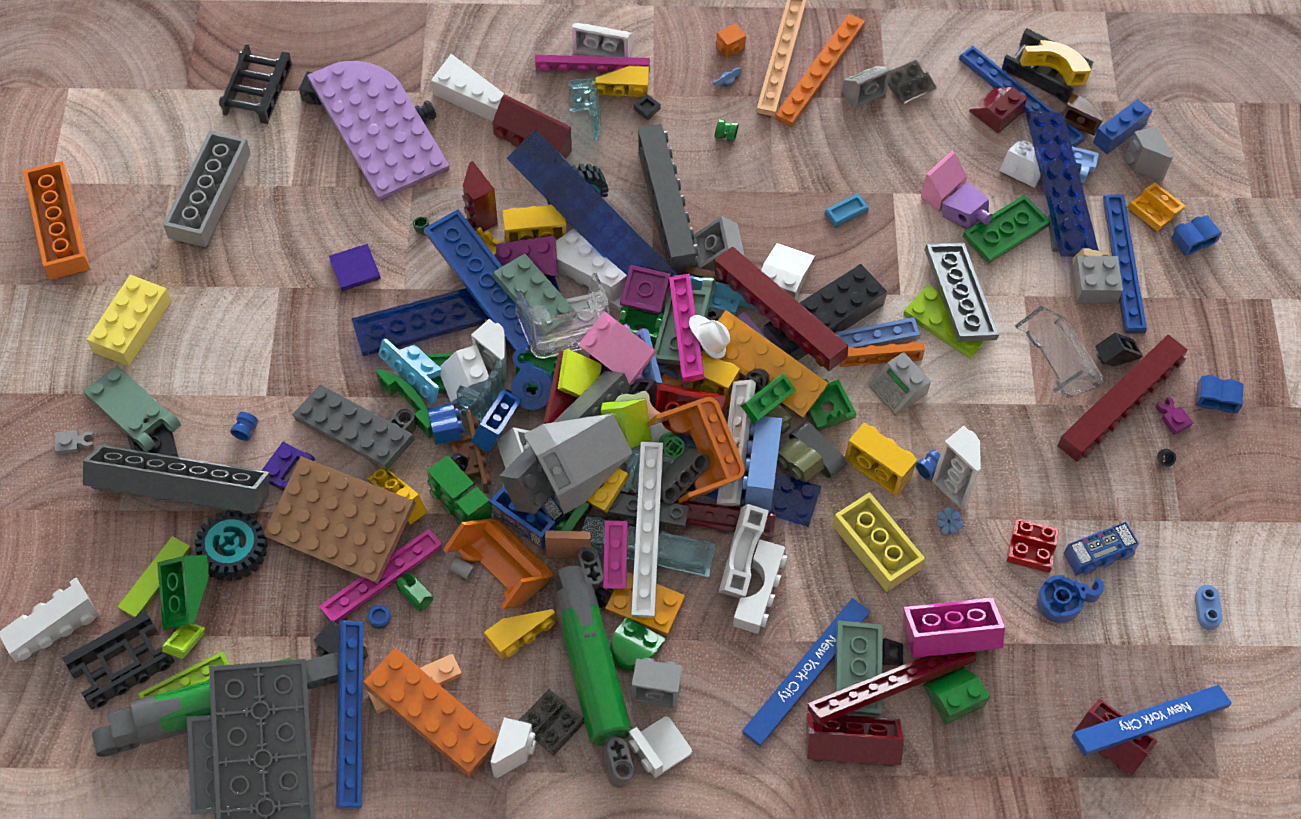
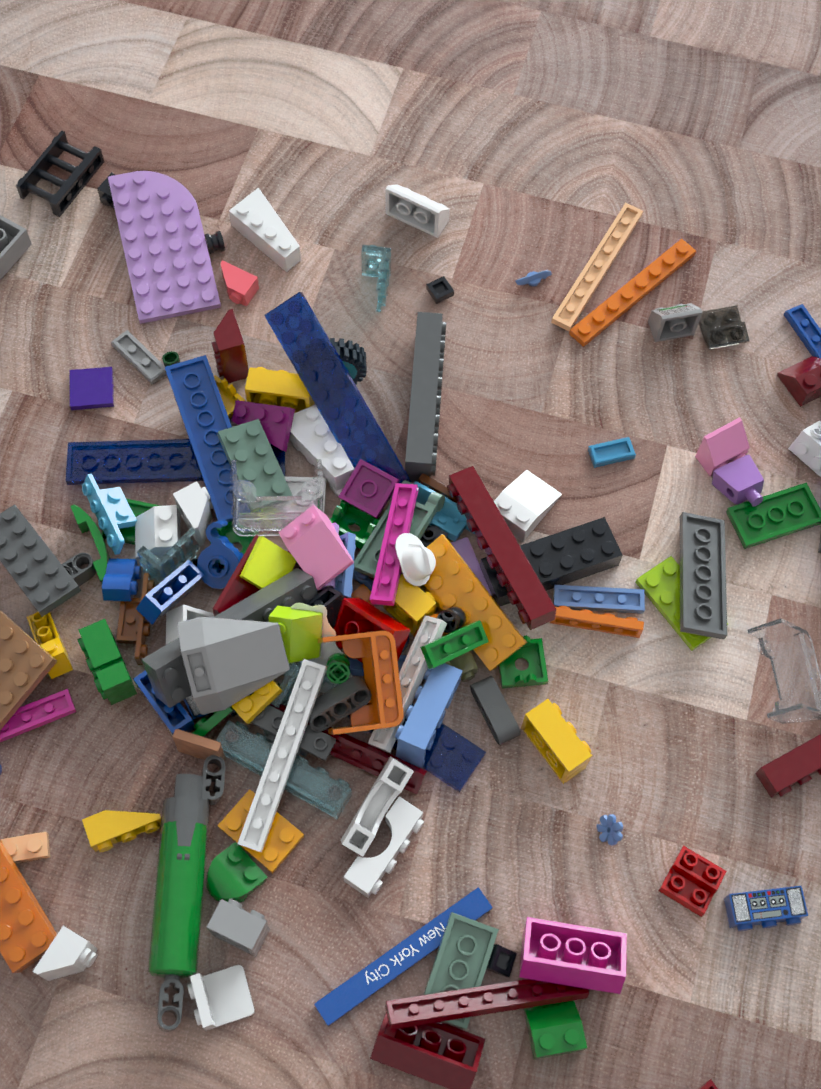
camera: 15 degrees right, 5 degrees up
(389, 229) = (139, 357): none -> light grey tile
(414, 592) = (31, 757): green piece -> none
(459, 143) = (239, 284): none -> coral slope
(462, 459) = (114, 628): black hinge -> none
(462, 568) = (88, 741): light grey hinge -> none
(503, 556) = (134, 740): orange windscreen -> none
(516, 121) = (324, 295): dark red slope -> none
(552, 721) = (120, 935): clear smoke slope -> none
(585, 63) = (406, 233): dark pink plate -> none
(602, 593) = (217, 812): black hinge -> none
(615, 555) = (242, 773): dark pink plate -> none
(627, 81) = (424, 258): yellow slope -> none
(716, 240) = (464, 451): light grey slope -> none
(726, 130) = (513, 334): green wheel -> none
(730, 40) = (548, 239): orange brick -> none
(799, 460) = (471, 717): olive brick -> none
(878, 542) = (524, 833): light yellow brick -> none
(900, 383) = (605, 660): light grey slope -> none
(927, 466) = (609, 759): blue wheel -> none
(958, 466) = (634, 775): white slope -> none
(1073, 594) = (718, 950): blue piece -> none

